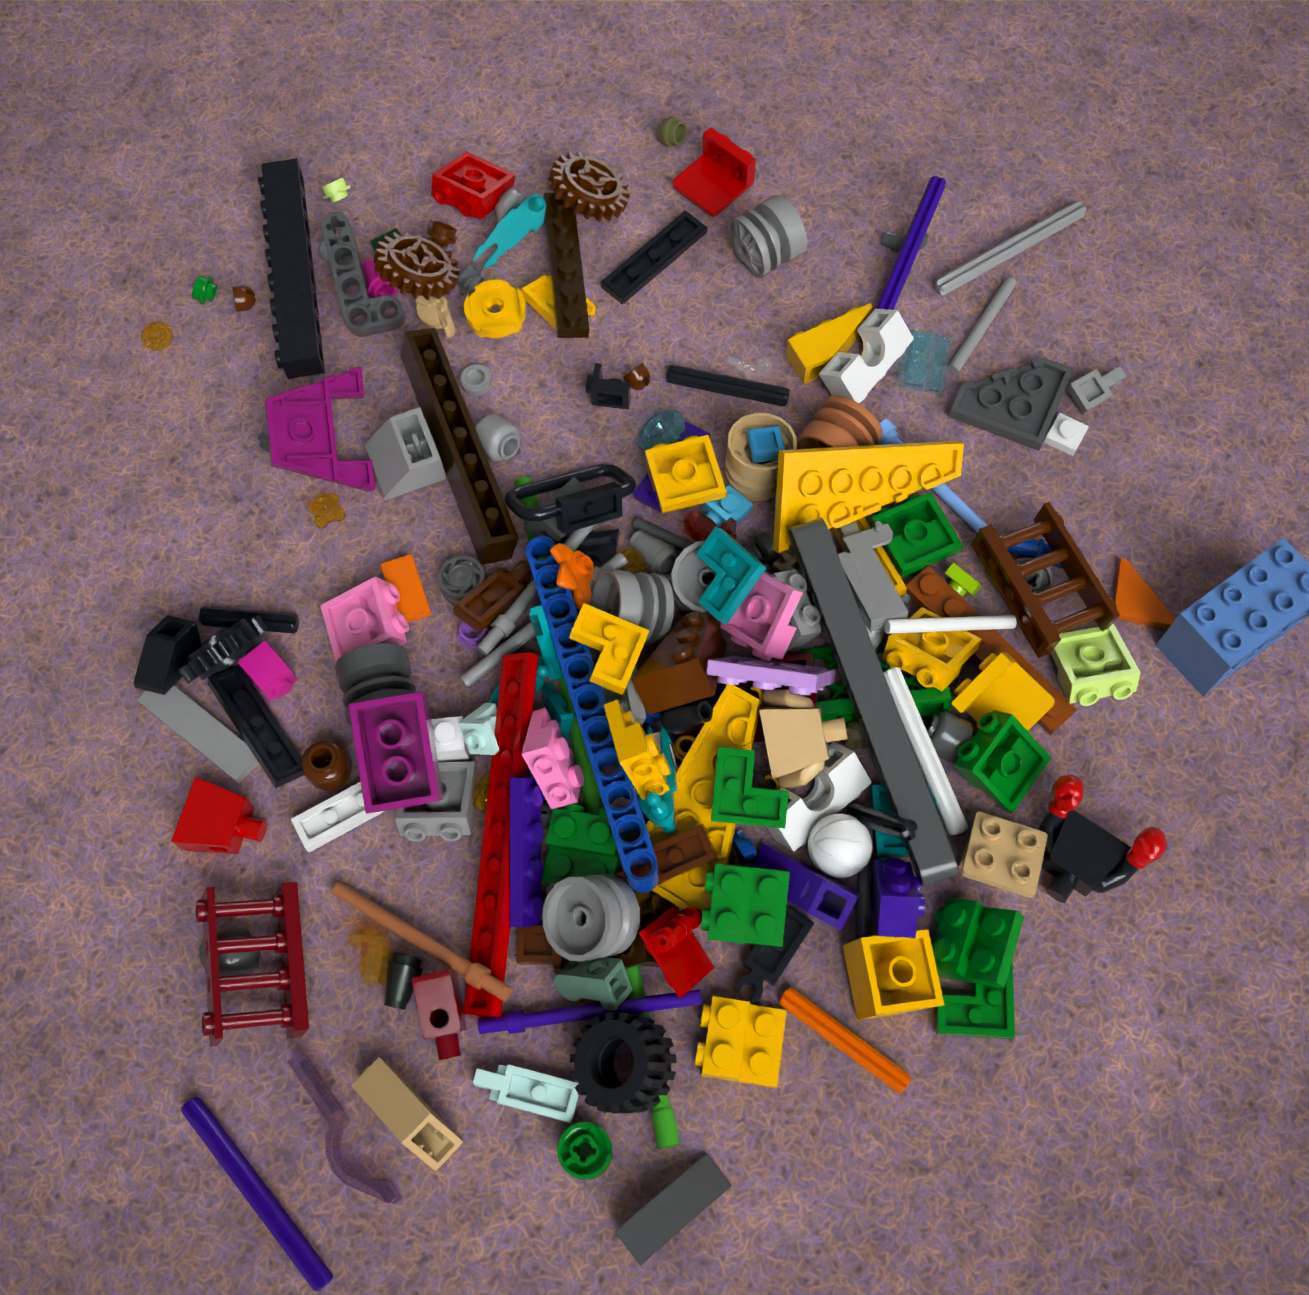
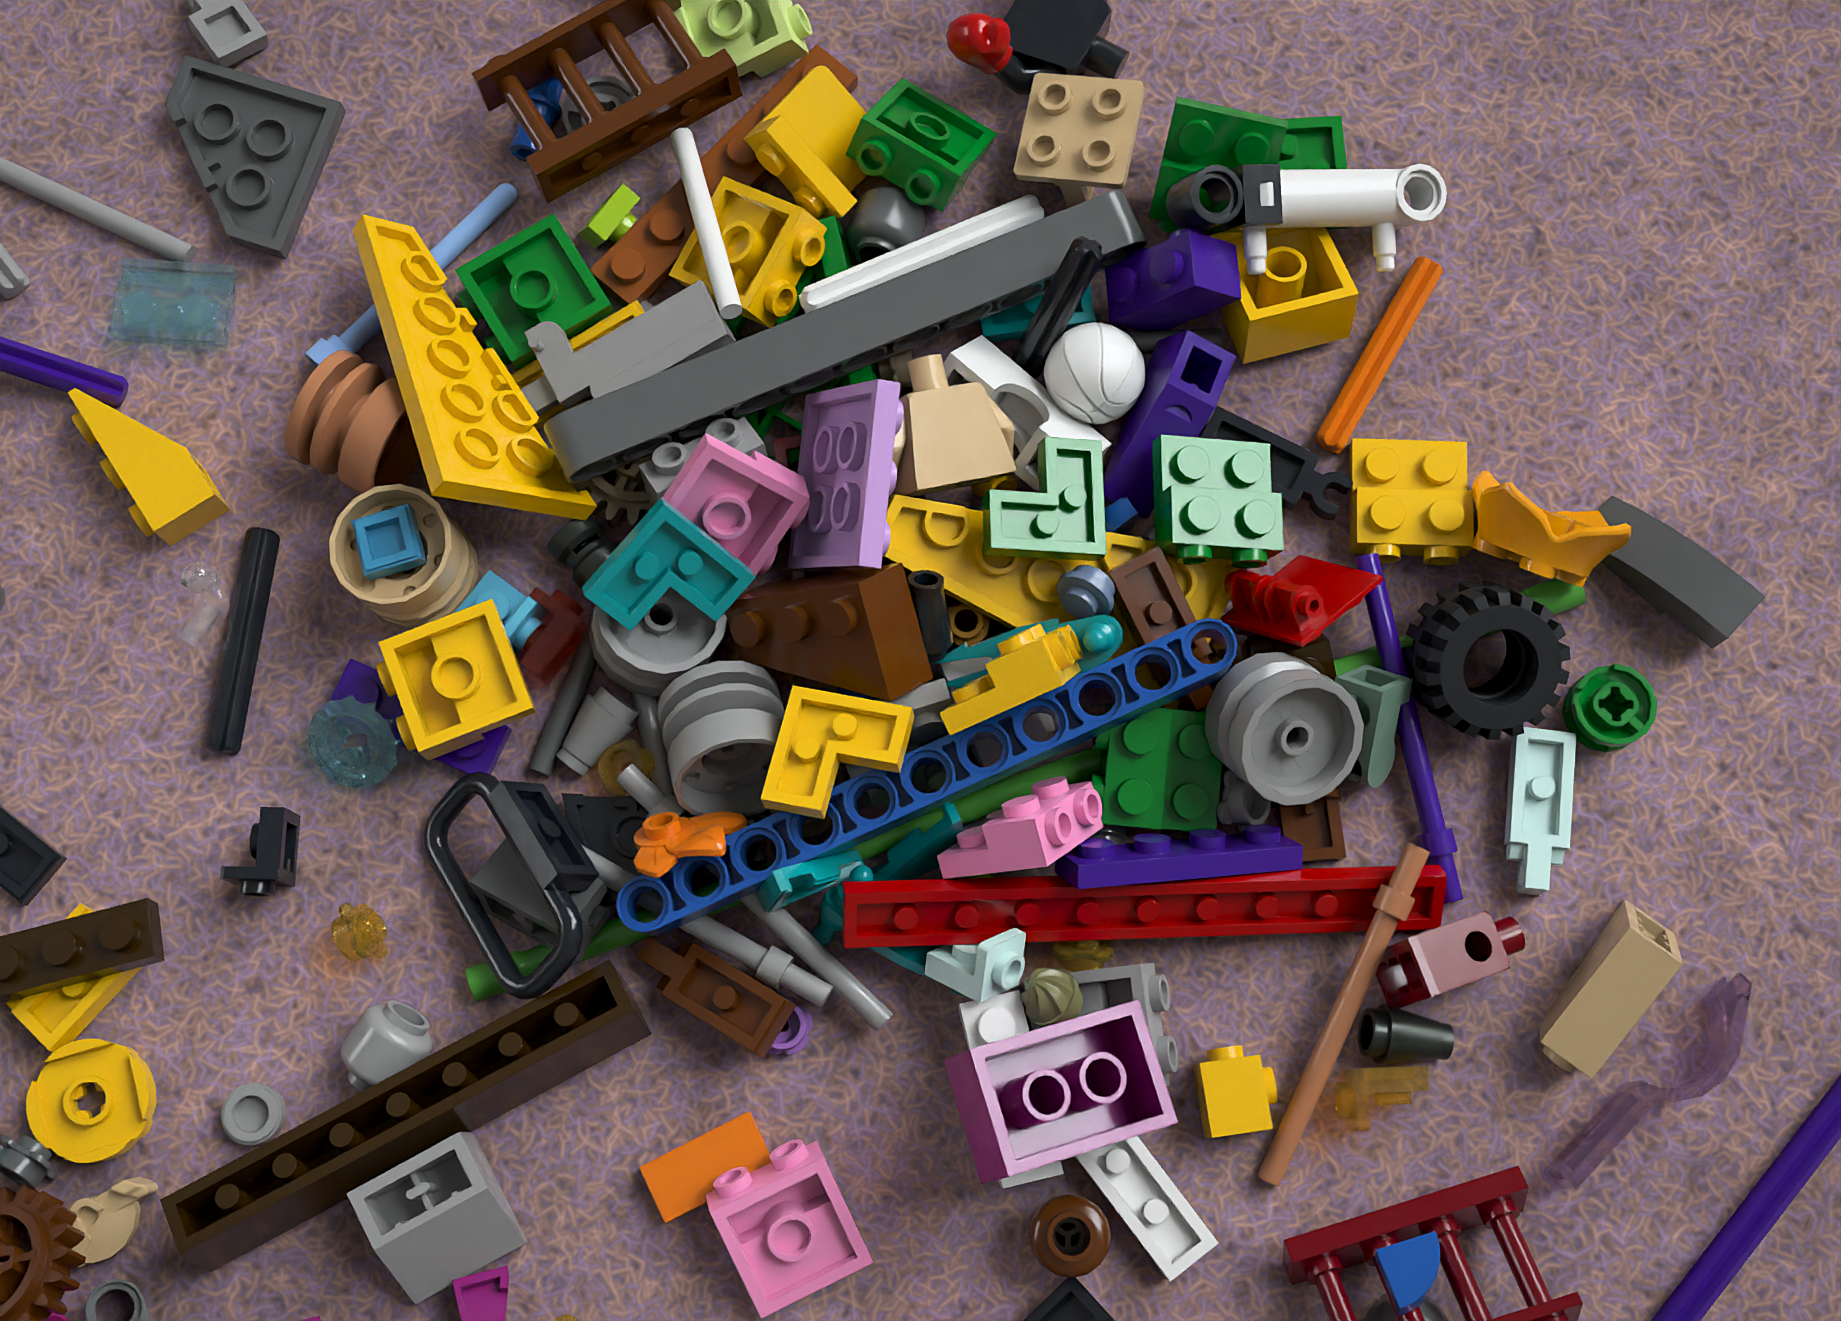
camera: 100 degrees left, 10 degrees up
(261, 947) = (1409, 1270): none -> blue tile
(374, 673) = (917, 1170): dark grey wheel -> none
(387, 870) = (1234, 1092): none -> yellow brick
(456, 766) = (1051, 997): none -> olive plate
(460, 577) = (686, 1061): flat silver wheel -> none
(559, 429) = (359, 932): none -> clear yellow plate
(638, 377) = (234, 805): reddish brown hinge -> none
(690, 809) = (1086, 592): none -> sand blue plate
(697, 1113) = (1541, 540): none -> light orange brick
(883, 340) = (145, 366): white arch -> none
(946, 994) = (1265, 197): none -> white piece
(1066, 434) = (312, 66): white plate -> none

